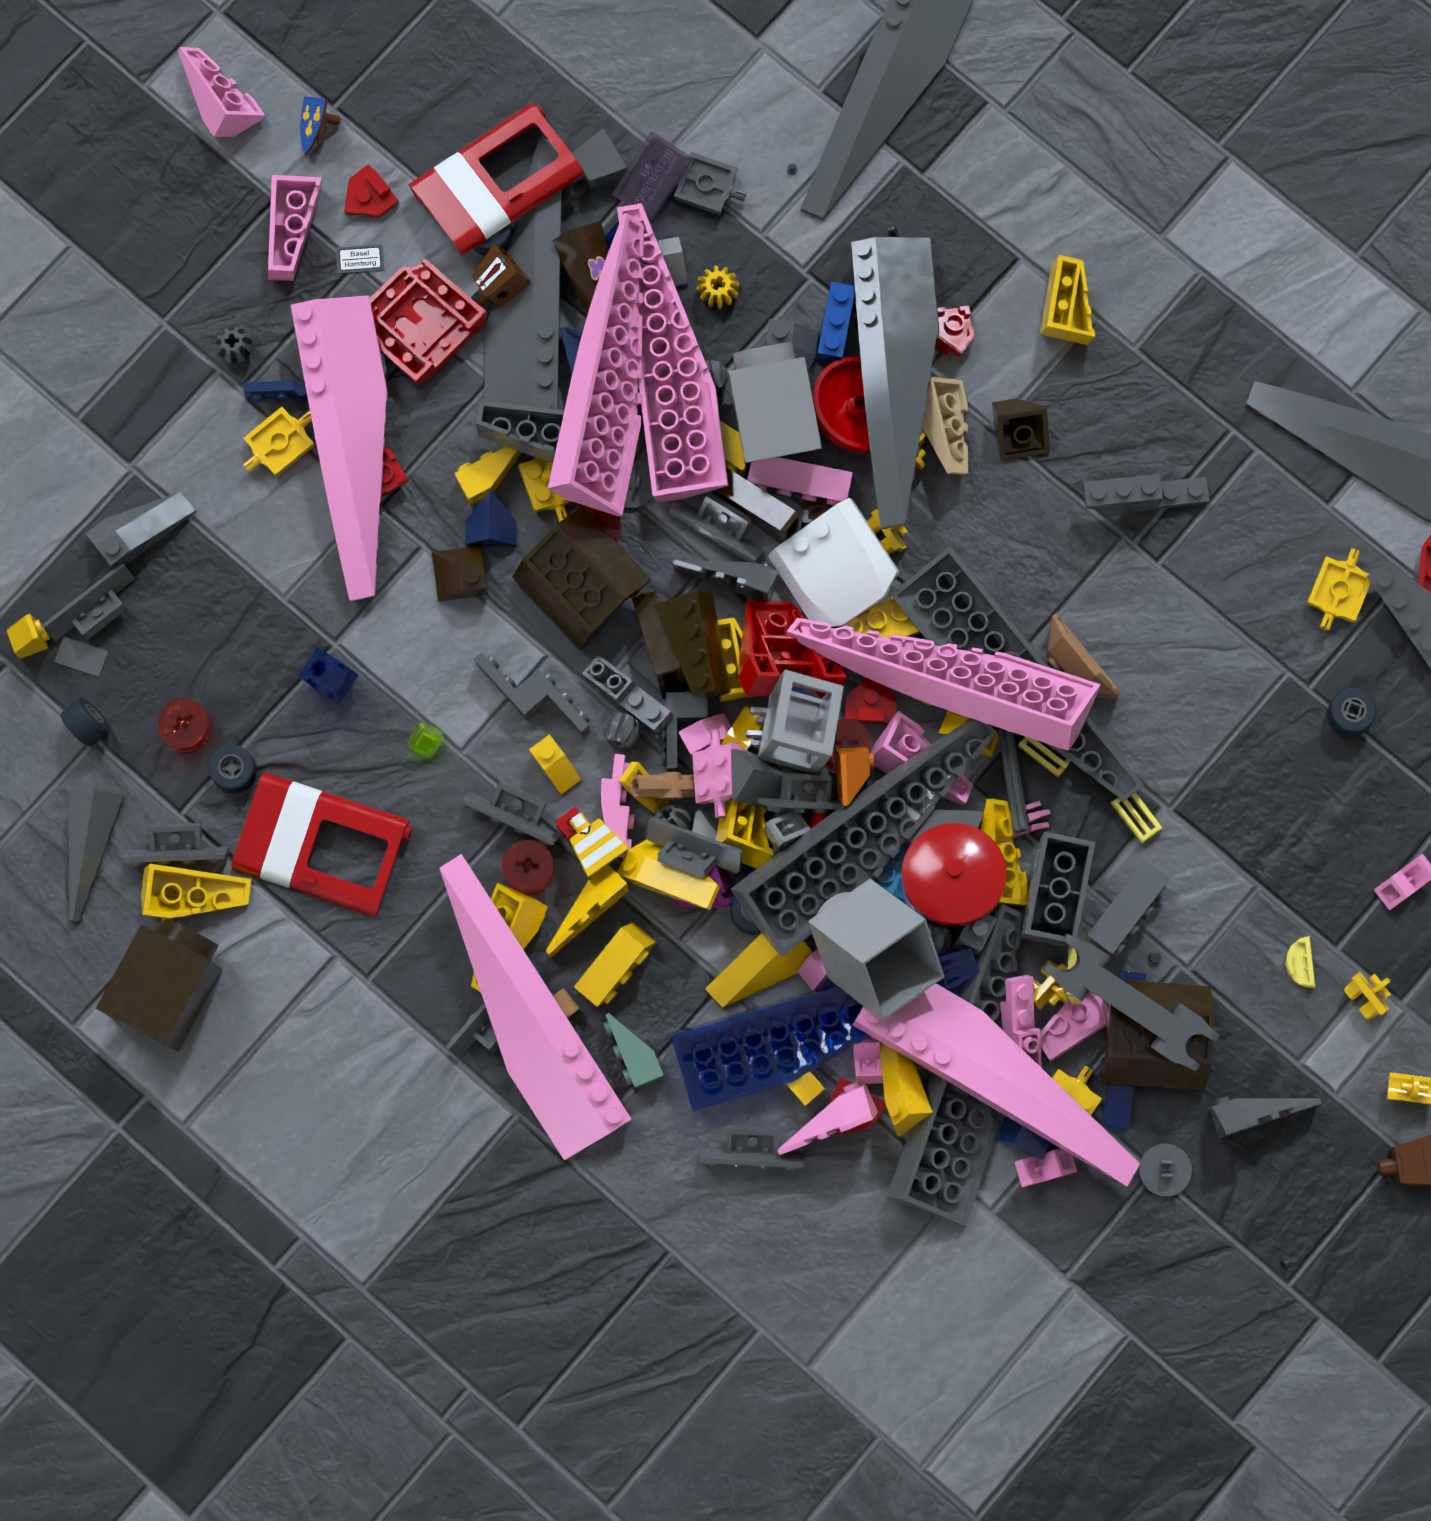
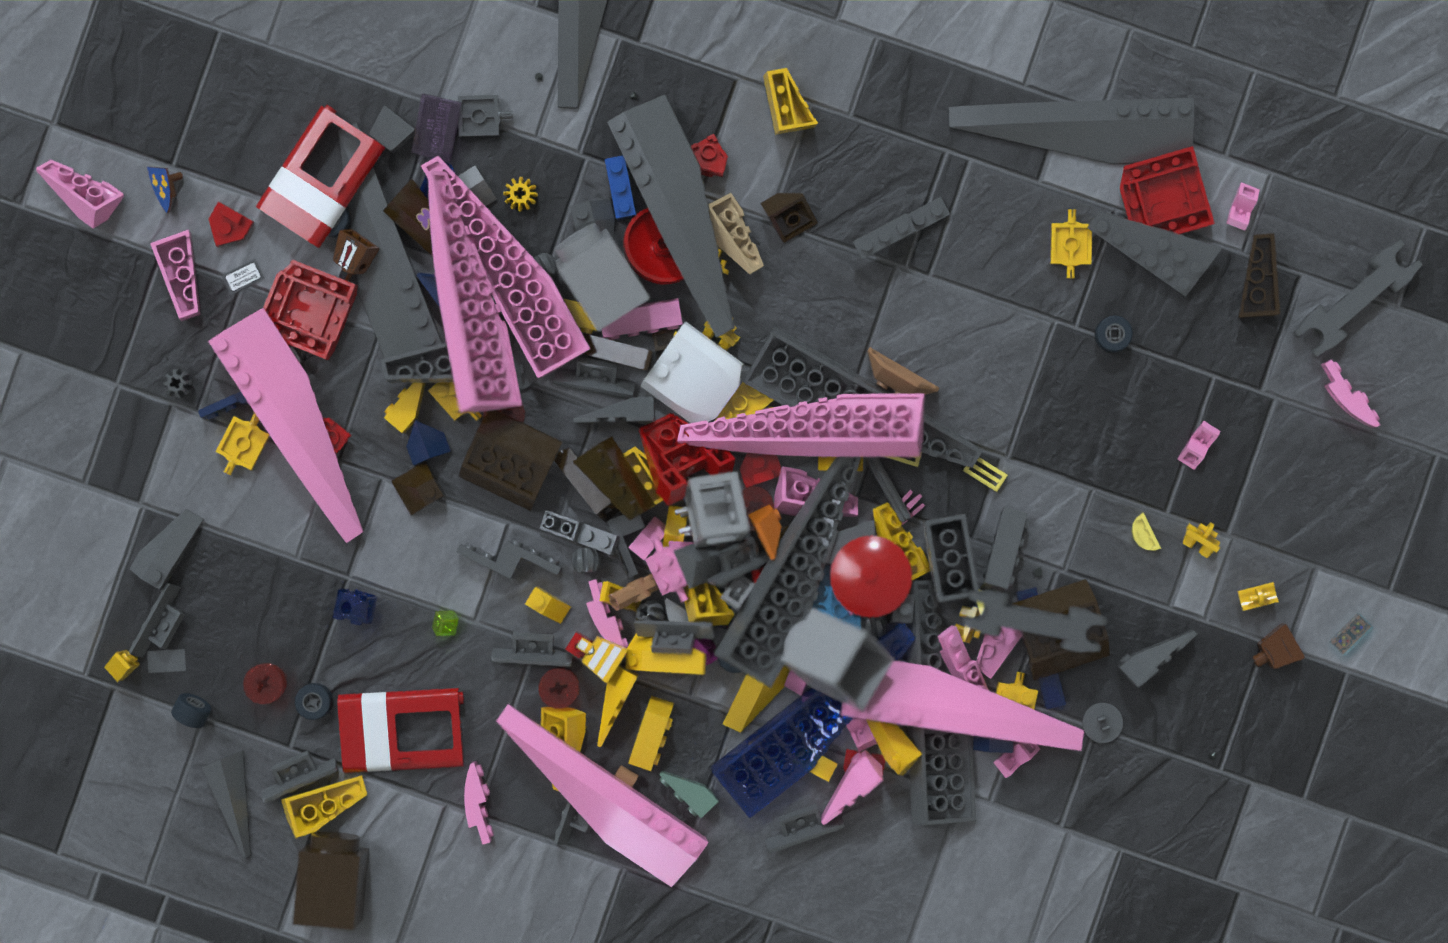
camera: 25 degrees left, 10 degrees up
(375, 954) = (474, 795): none -> bright pink slope

